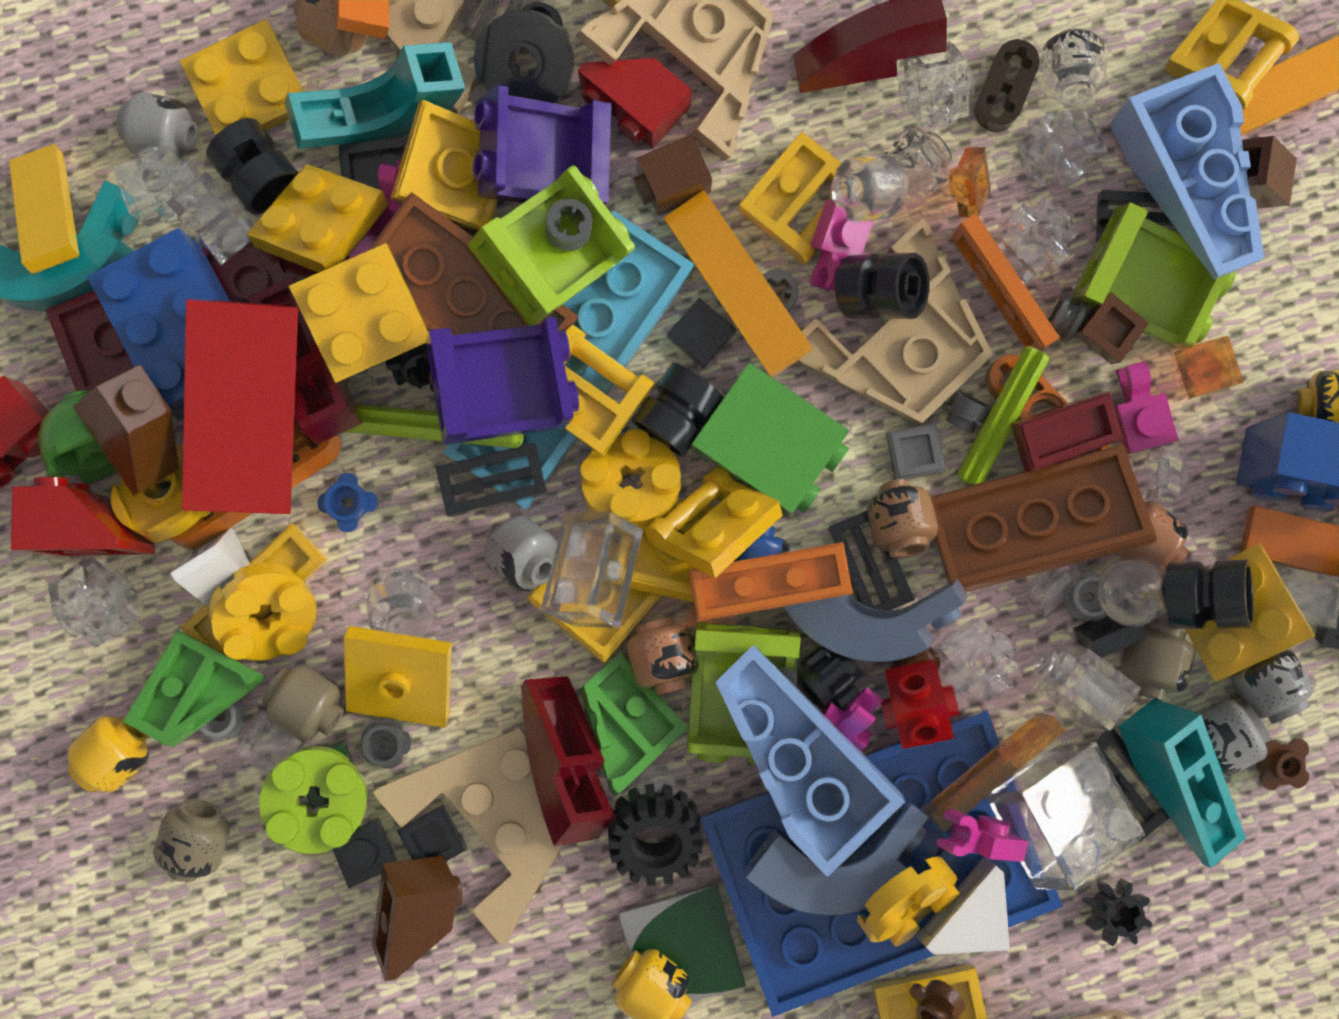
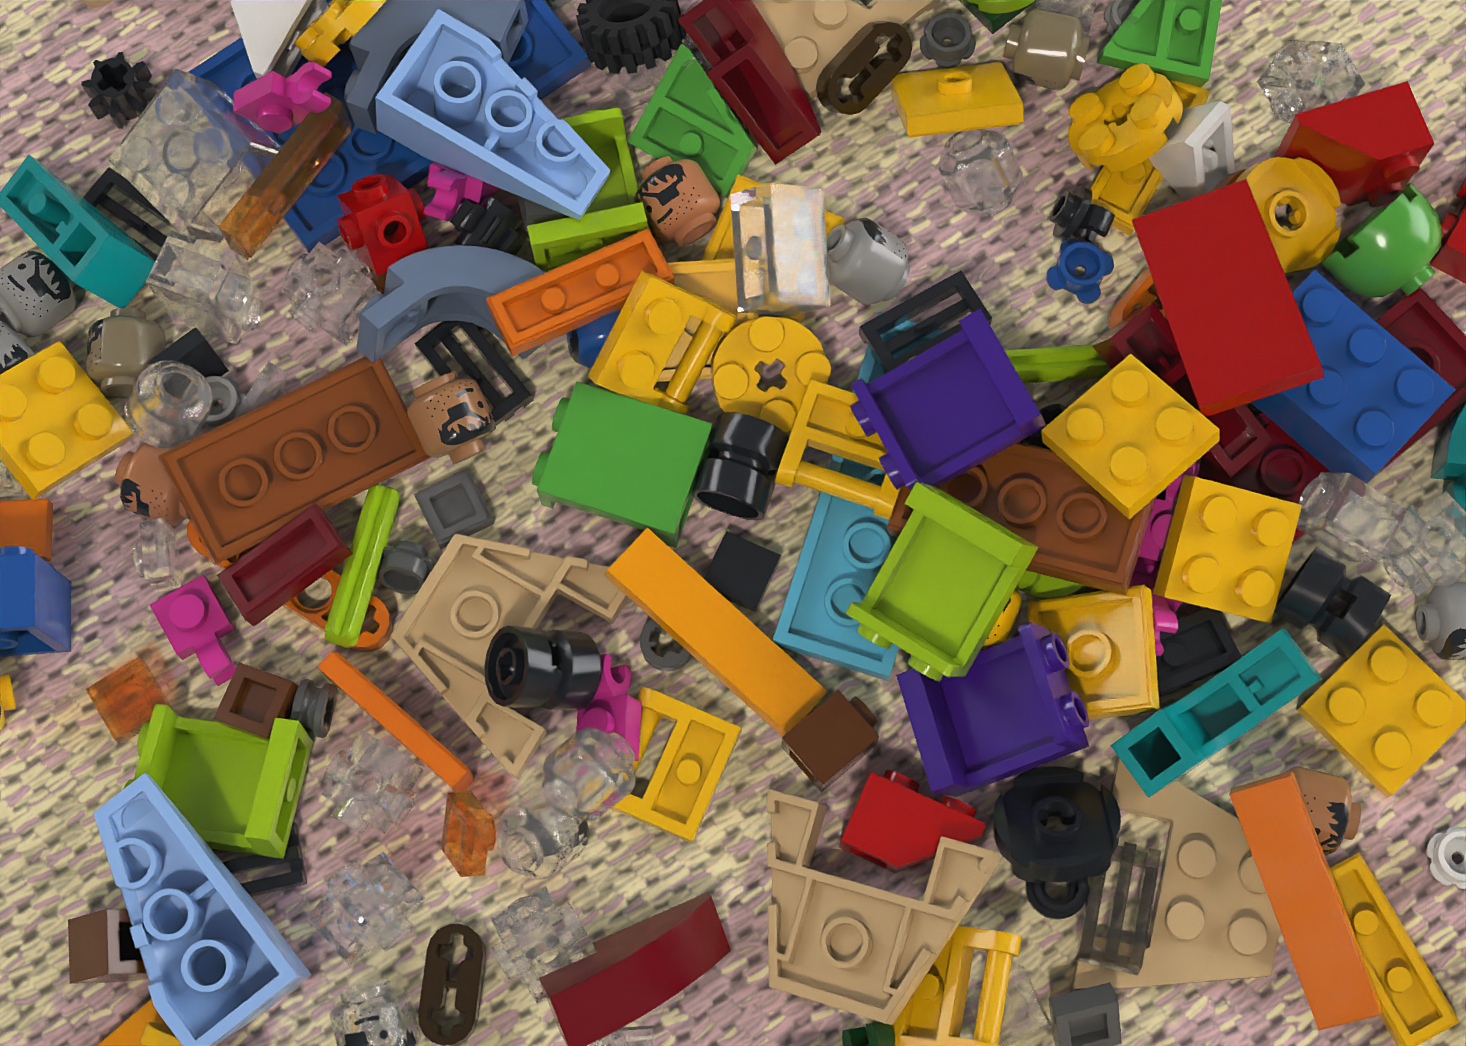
camera: 165 degrees right, 10 degrees down
(132, 428) = (1336, 241): reddish brown slope -> none
(333, 548) = (1078, 217): none -> black plate
(465, 736) = (855, 59): none -> dark brown beam
(576, 210) = (949, 610): dark grey bush -> none
(1212, 594) = (74, 410): black wheel -> none

